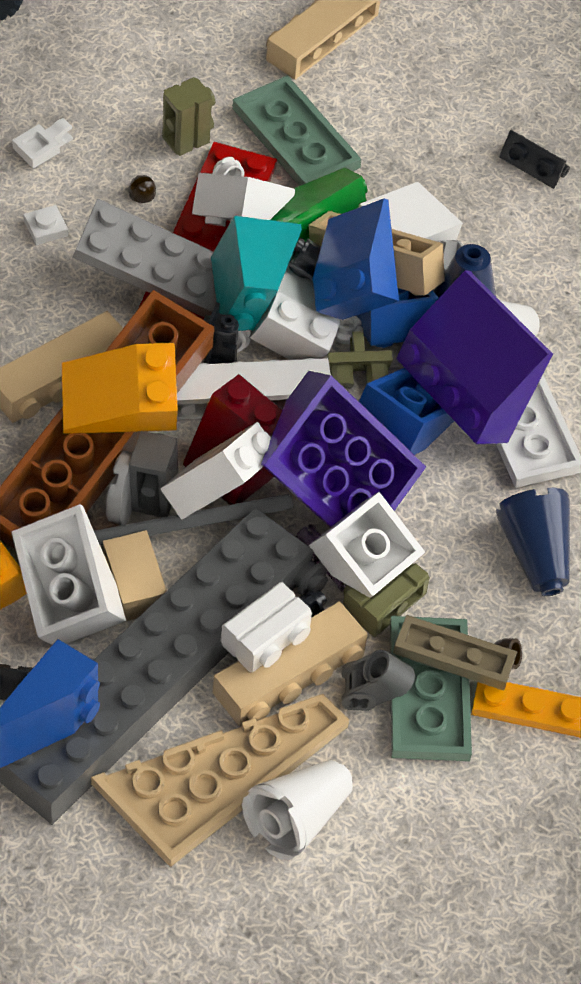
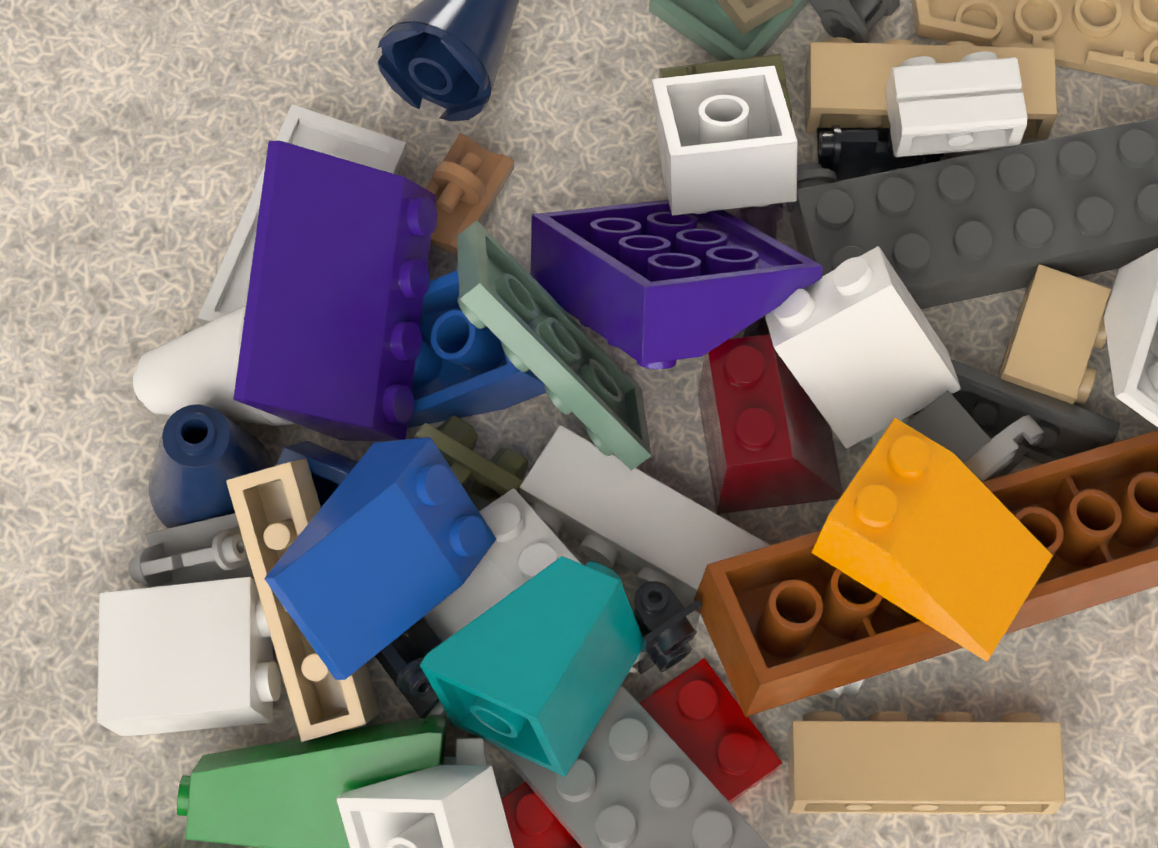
camera: 140 degrees left, 15 degrees up
(383, 377) = (552, 345): none -> sand green plate
(469, 471) = (465, 189): none -> medium nougat hips

